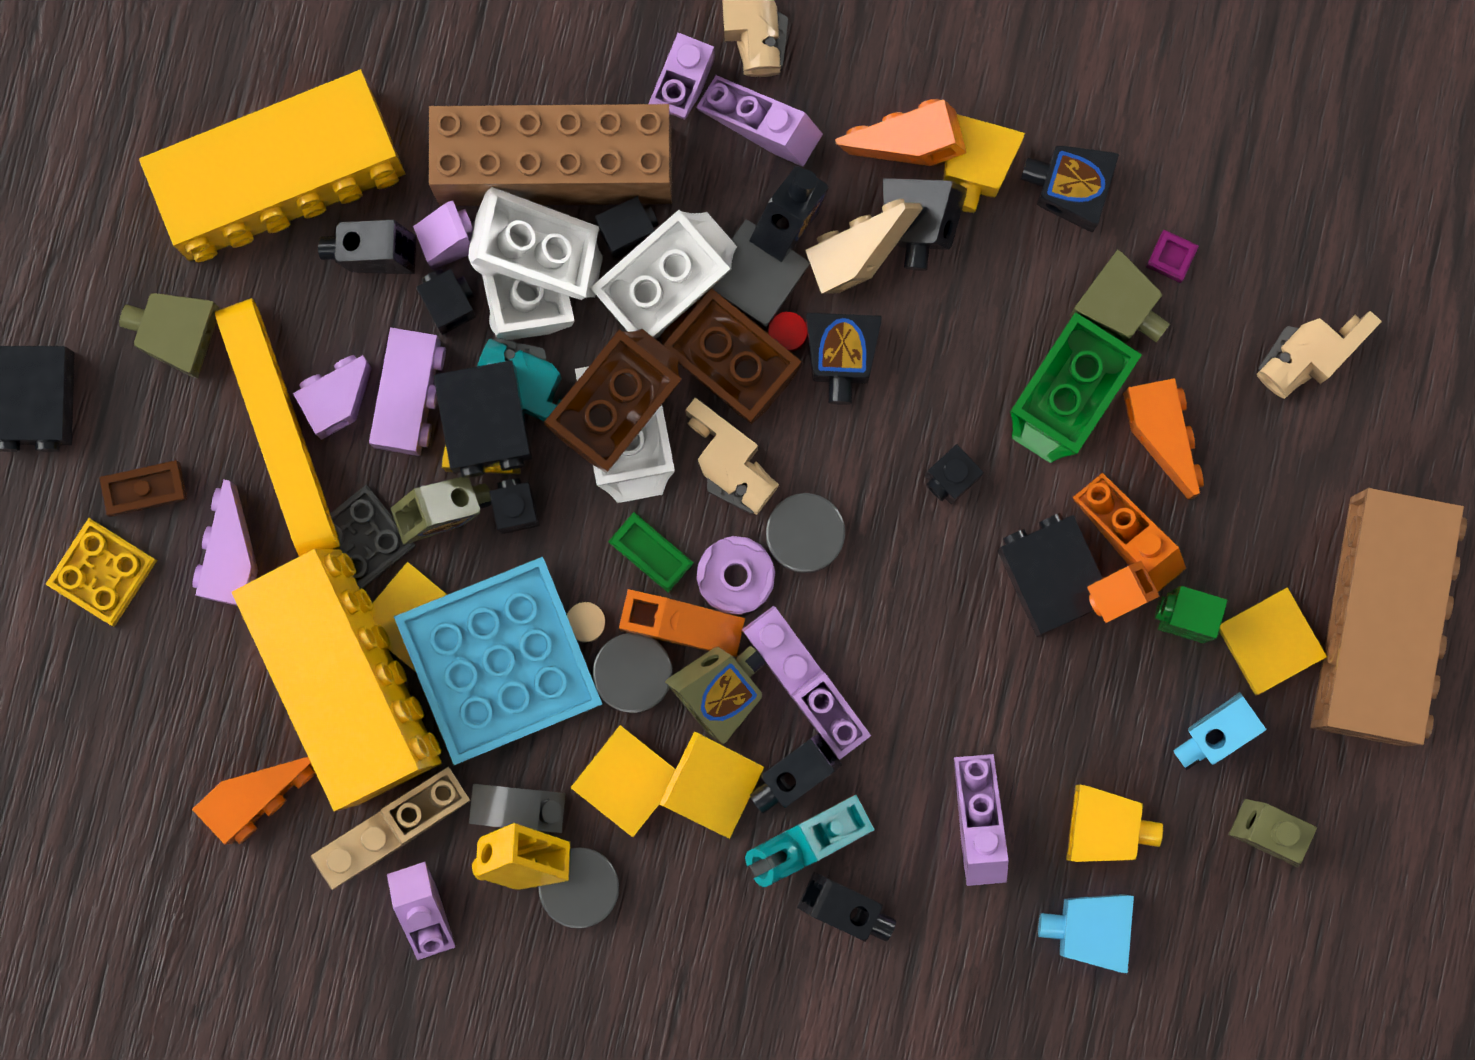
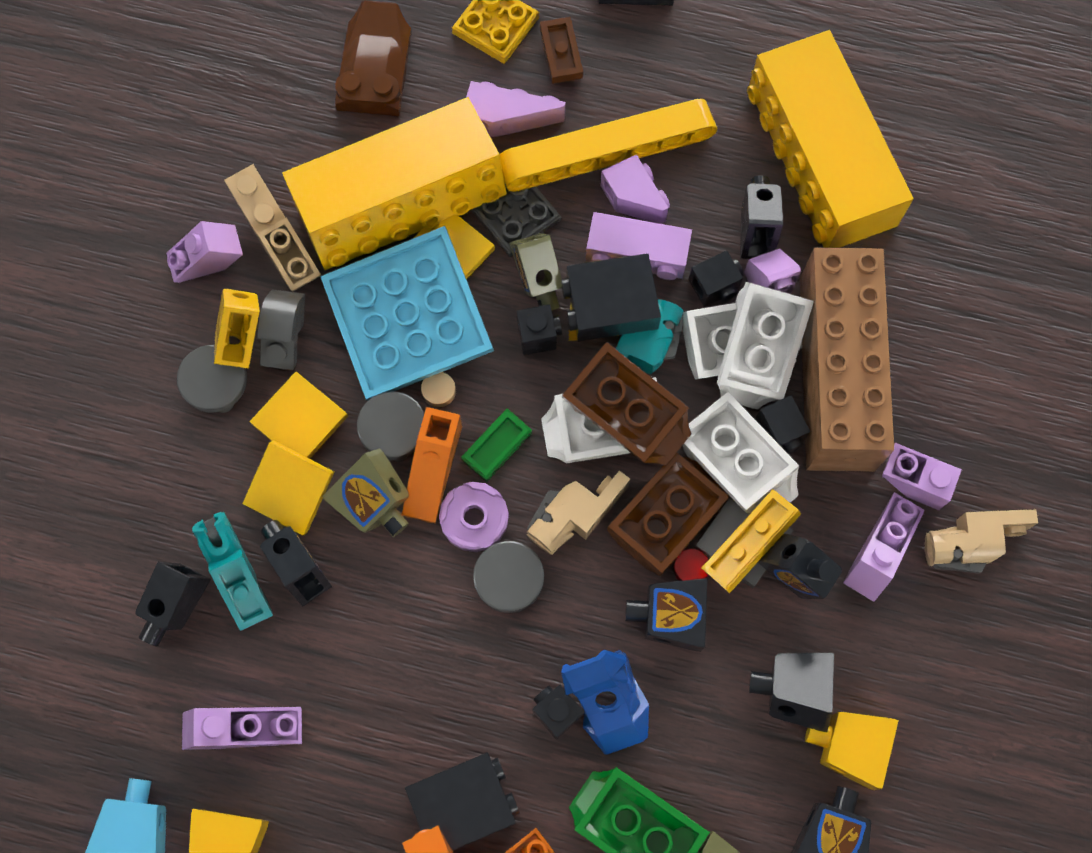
camera: 90 degrees right, 10 degrees down
(156, 721) = (374, 60): none -> reddish brown slope
(173, 330) = (688, 70): olive torso -> none
(241, 801) = (302, 116): orange slope -> none
(763, 263) = (751, 540): none -> yellow tile
(806, 682) = (373, 574): lavender slope -> none
(858, 252) = (764, 628): slope -> none
(914, 137) = (874, 686): slope -> none
(963, 407) = (615, 724): none -> blue piece

